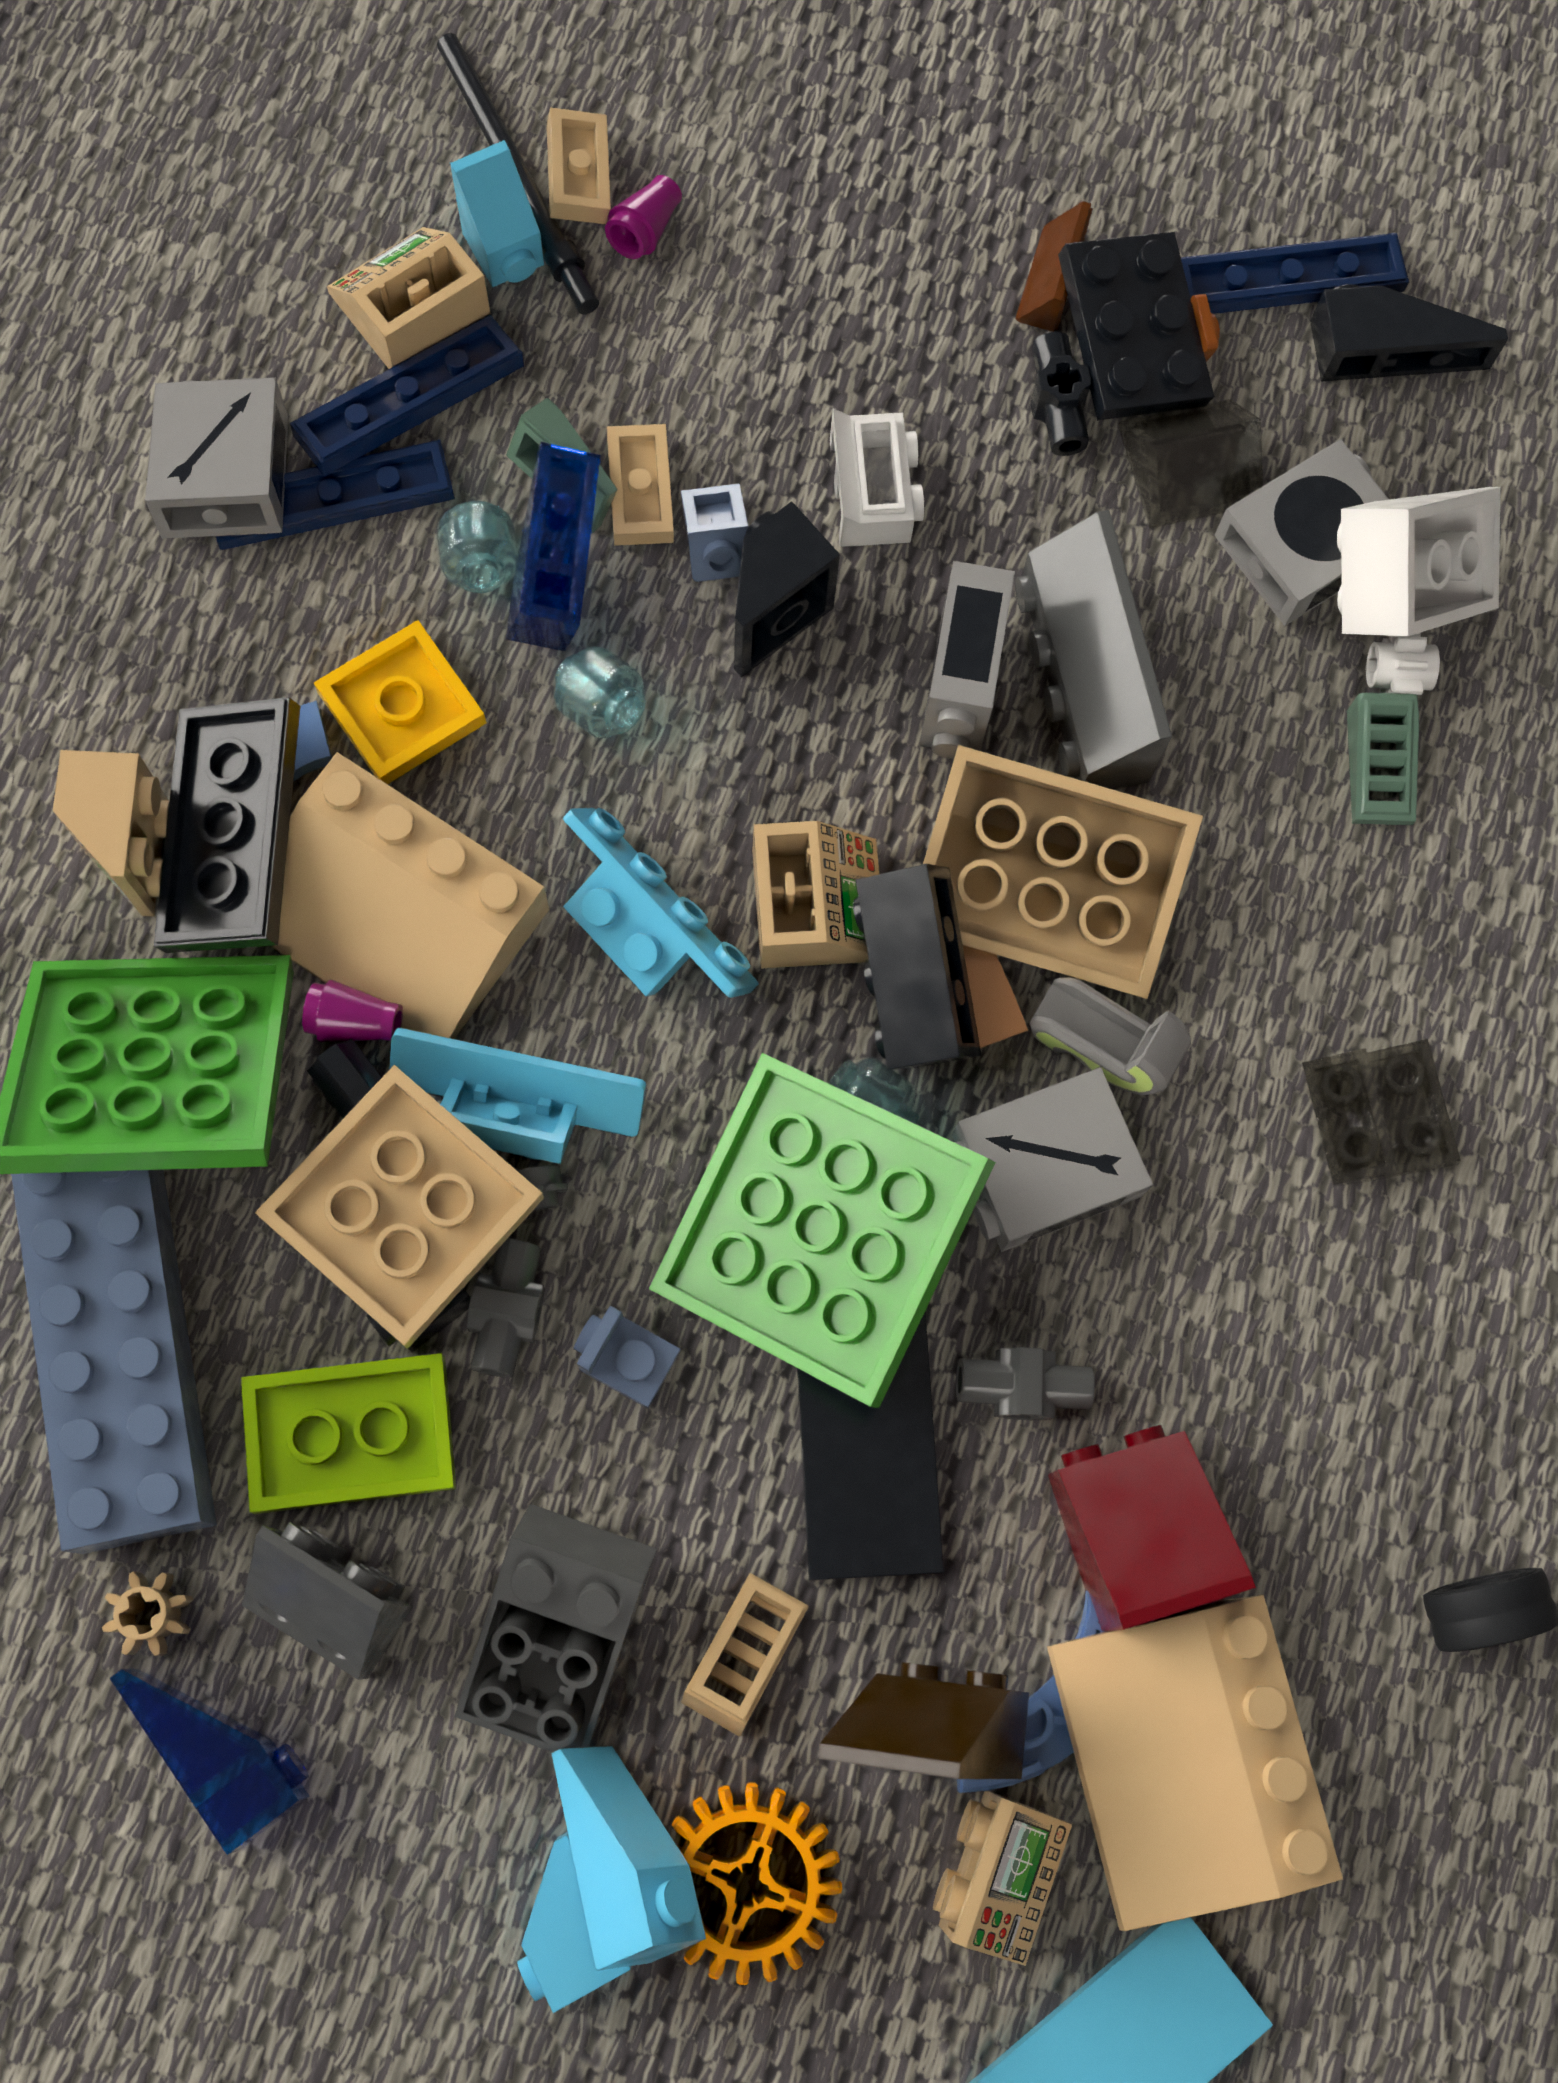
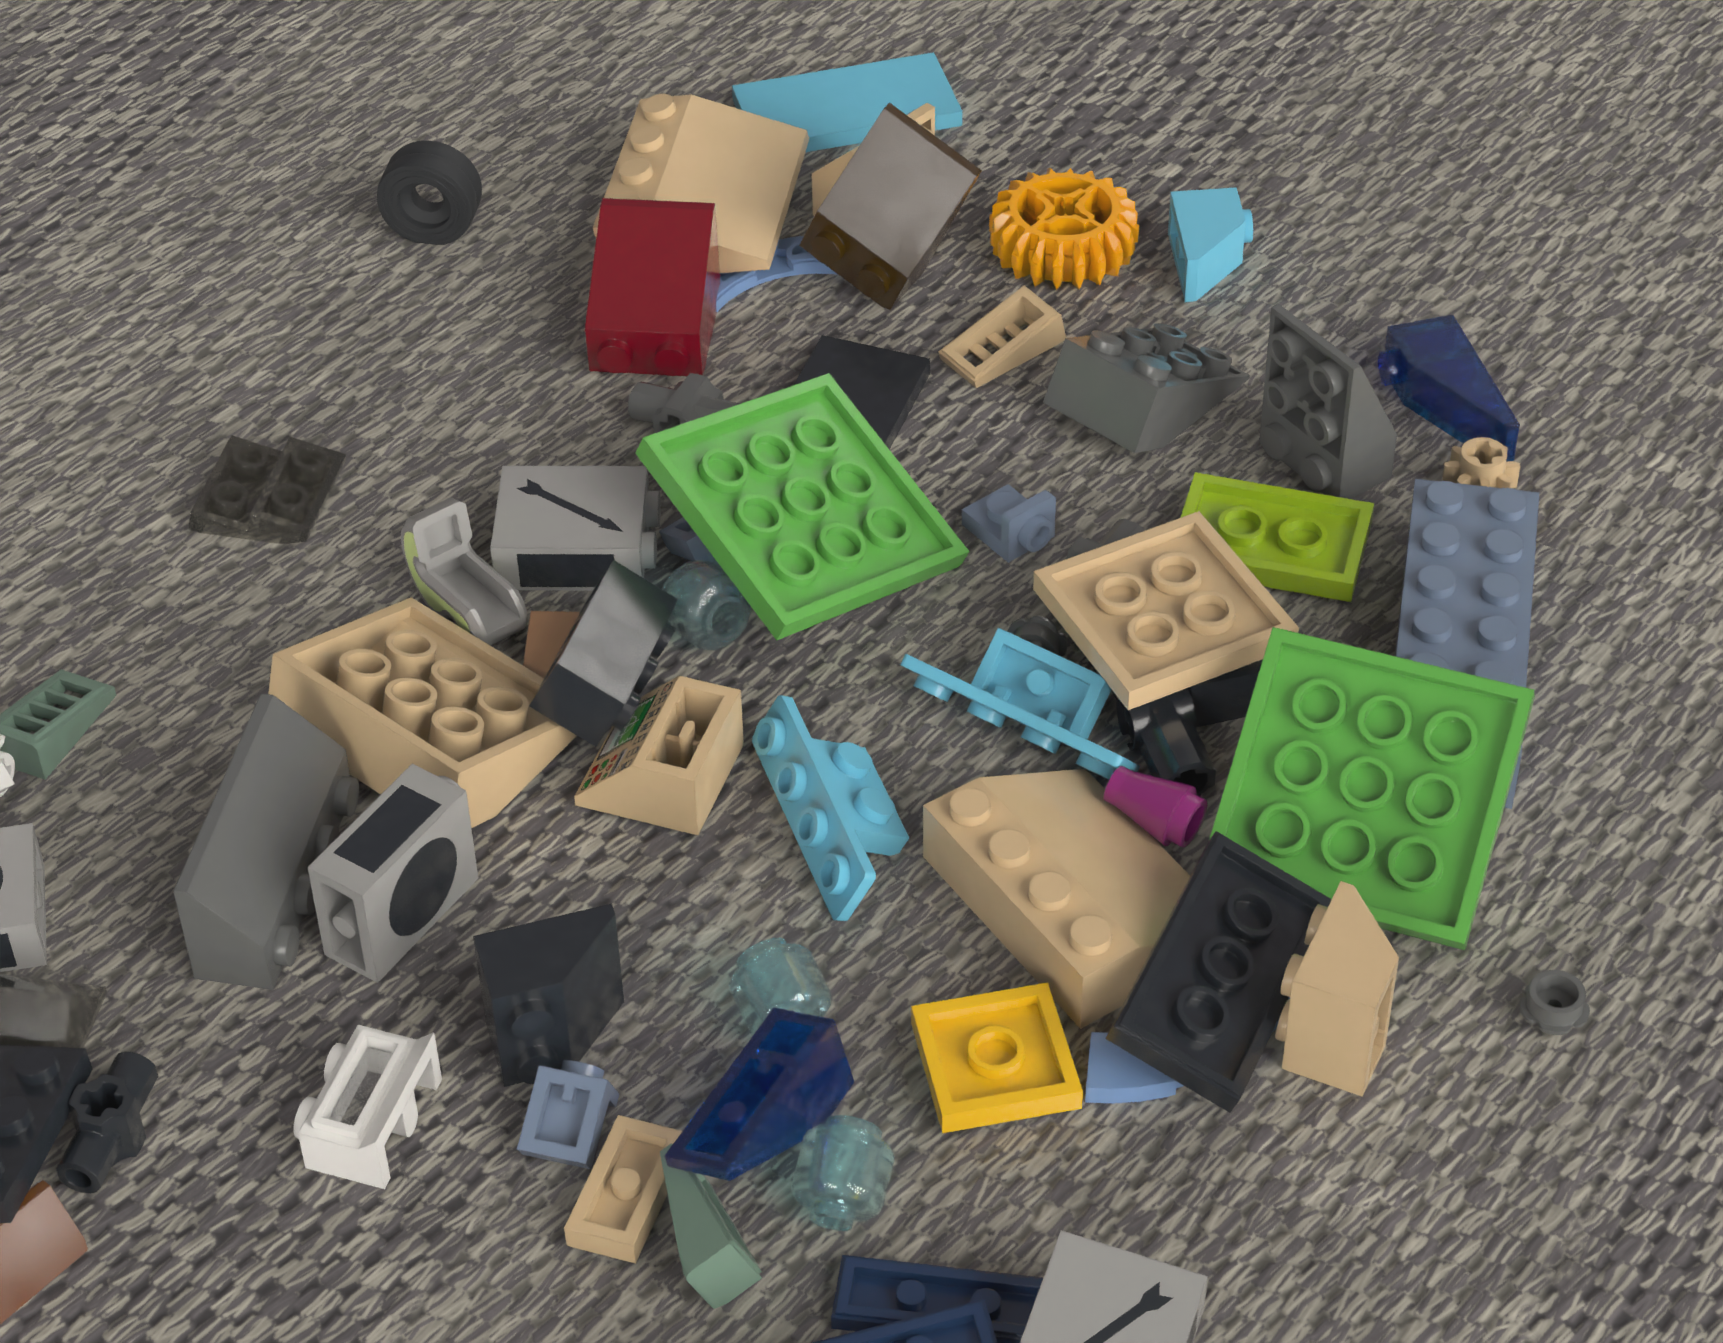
camera: 150 degrees left, 30 degrees down
(626, 1864) = (1148, 231): medium azure slope -> none

